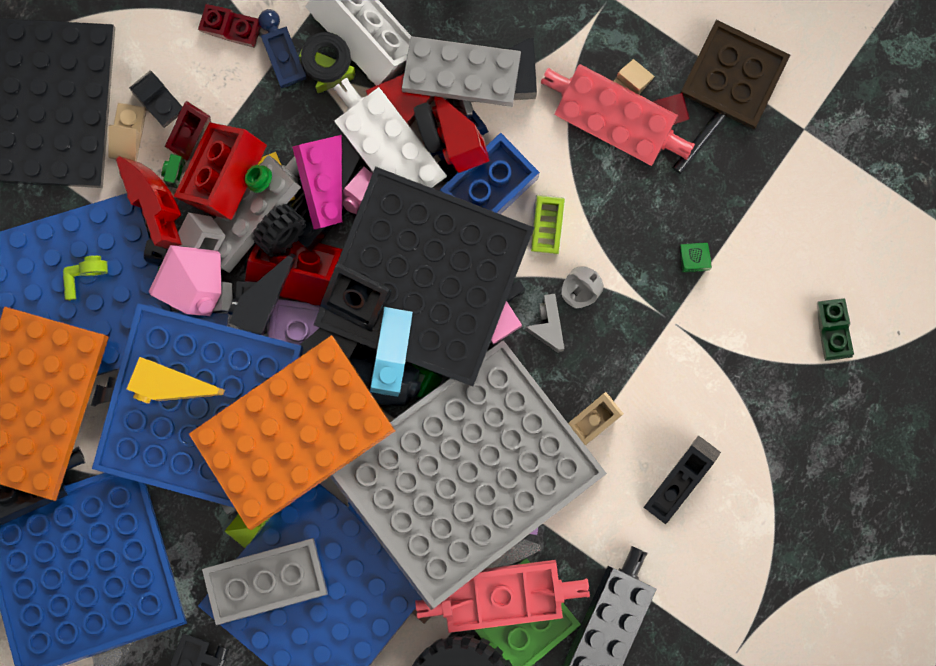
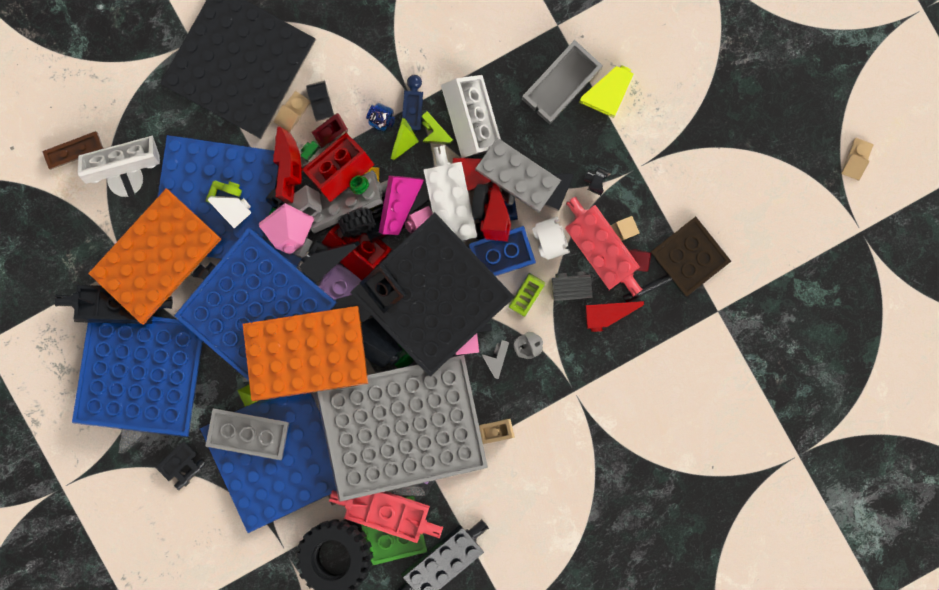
camera: 30 degrees right, 5 degrees up
(103, 291) = (231, 208): none -> white slope
(164, 384) = (238, 283): yellow slope -> none
(229, 26) = (388, 73): dark red slope -> none
(246, 83) = (380, 116): none -> clear blue head
(291, 98) = (404, 140): none -> lime slope
(320, 41) = (437, 114): black tyre -> none
(391, 352) = (389, 332): medium azure slope -> none
(545, 133) = (551, 238): none -> white brick
(566, 33) = (595, 180): none -> black piece
(602, 185) = (571, 287): none -> dark grey brick
(659, 202) = (606, 314): none -> red slope
(682, 479) = (532, 493): black slope -> none
(695, 257) = (609, 359): green slope -> none
(834, 329) = (673, 446): dark green slope -> none

